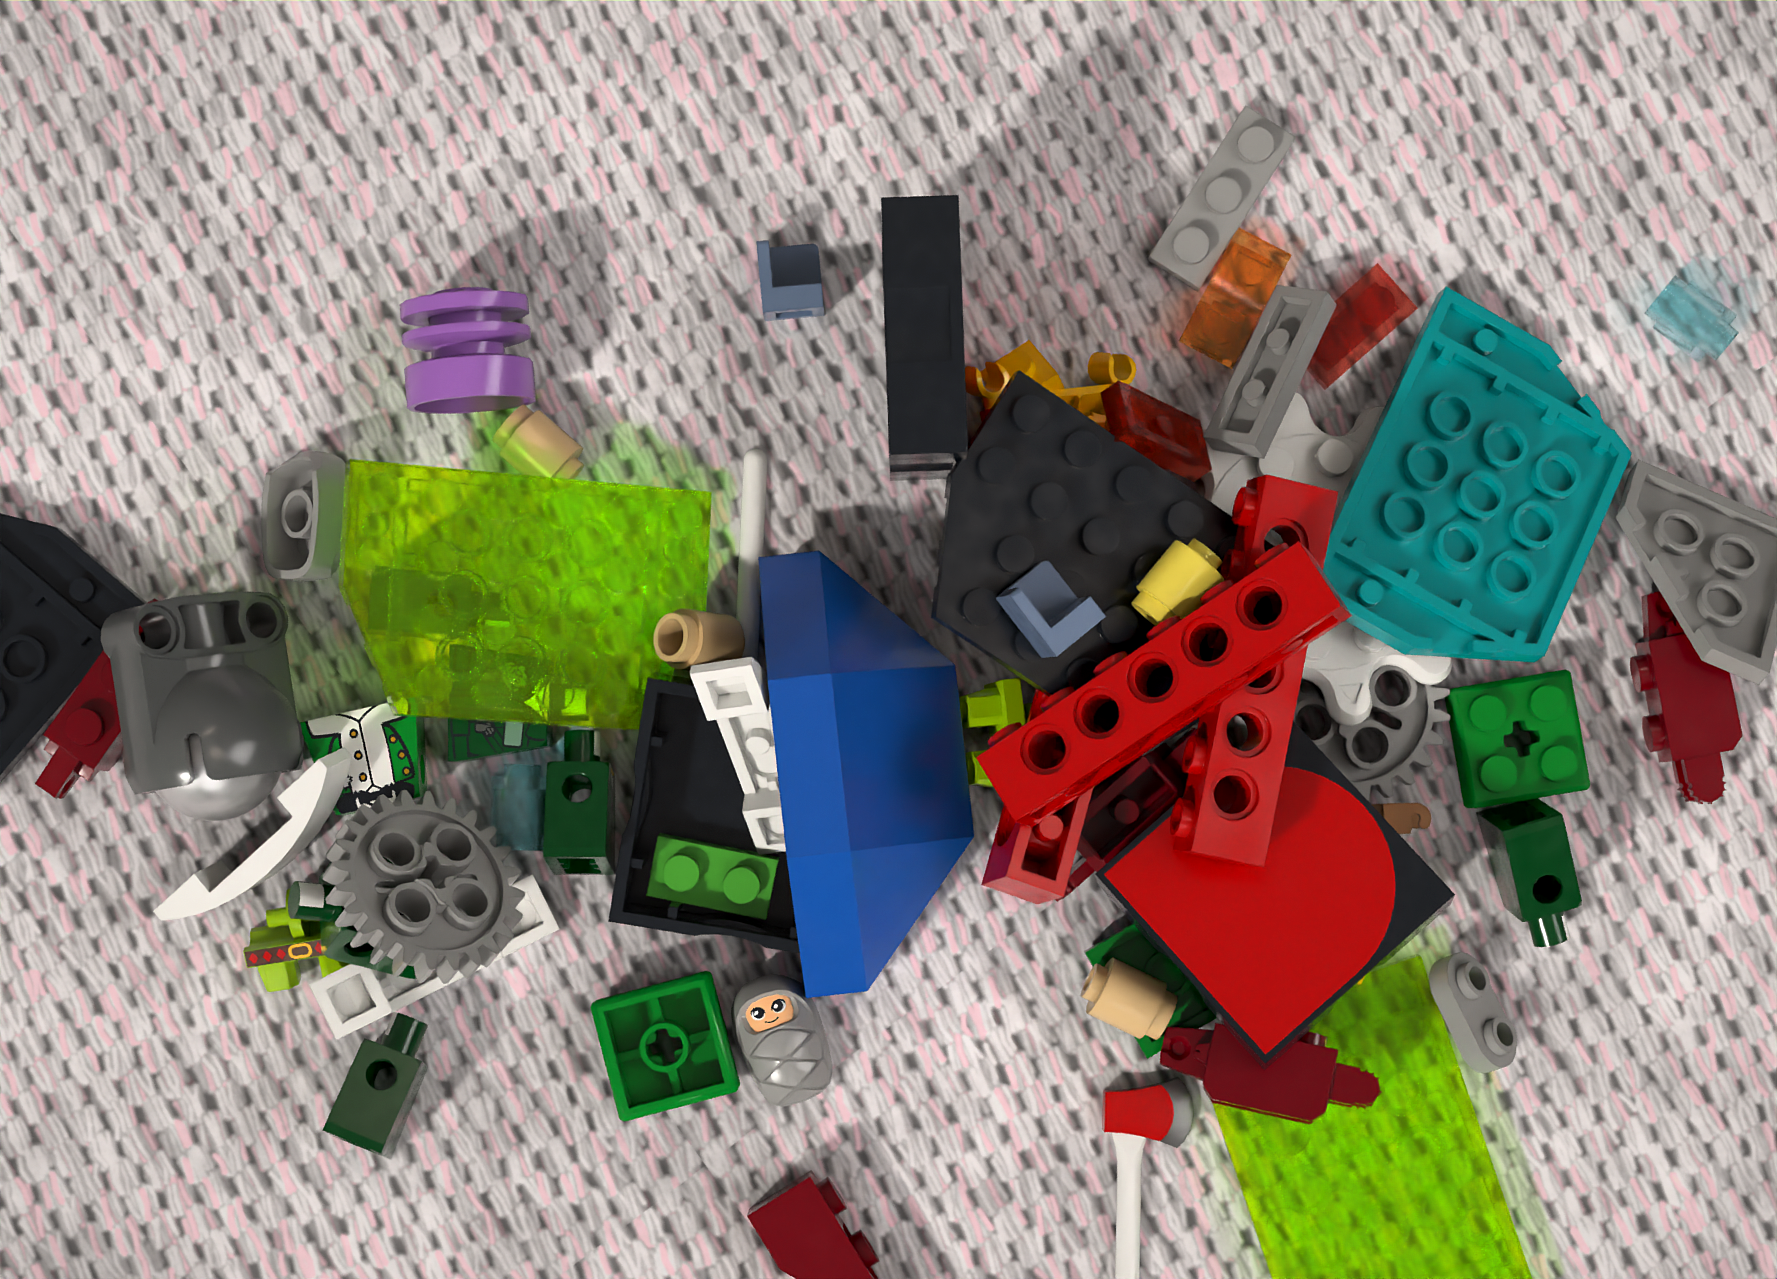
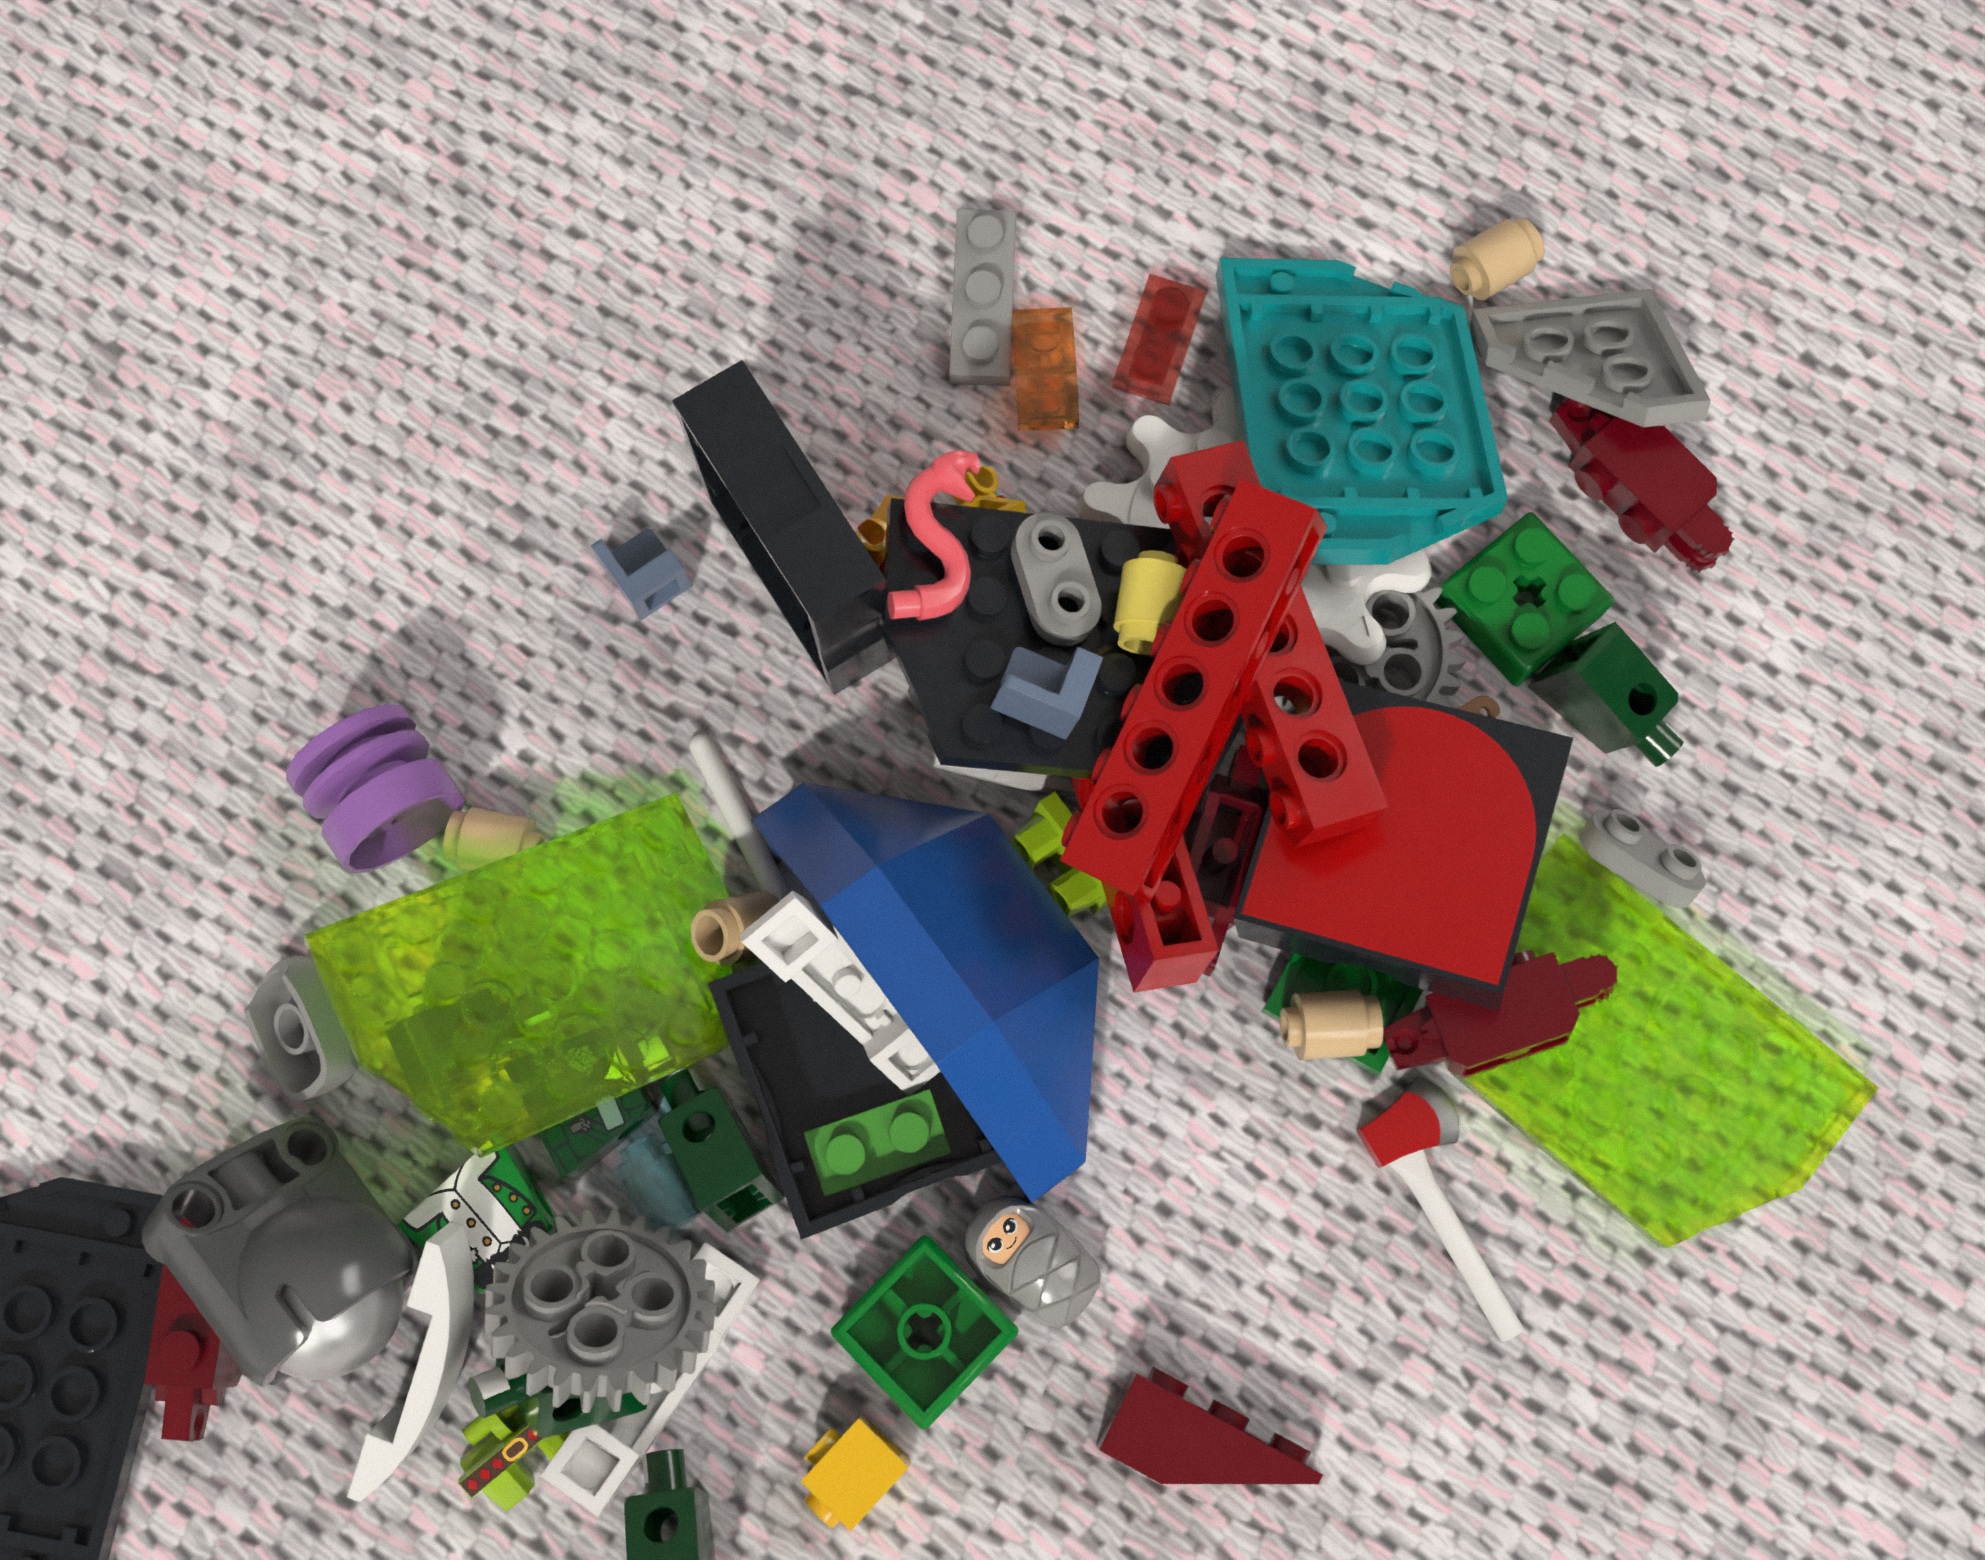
camera: 30 degrees left, 10 degrees down
(547, 1119) = (851, 1473): none -> yellow brick
(1012, 485) = (941, 598): none -> coral animal
(1110, 516) = (1055, 574): none -> light grey plate
(1156, 430) = (1042, 492): clear red plate -> none
(1270, 371) = (1114, 404): light grey plate -> none
(1688, 425) = (1496, 258): none -> tan brick
(1692, 319) = (1443, 173): clear light blue brick -> none

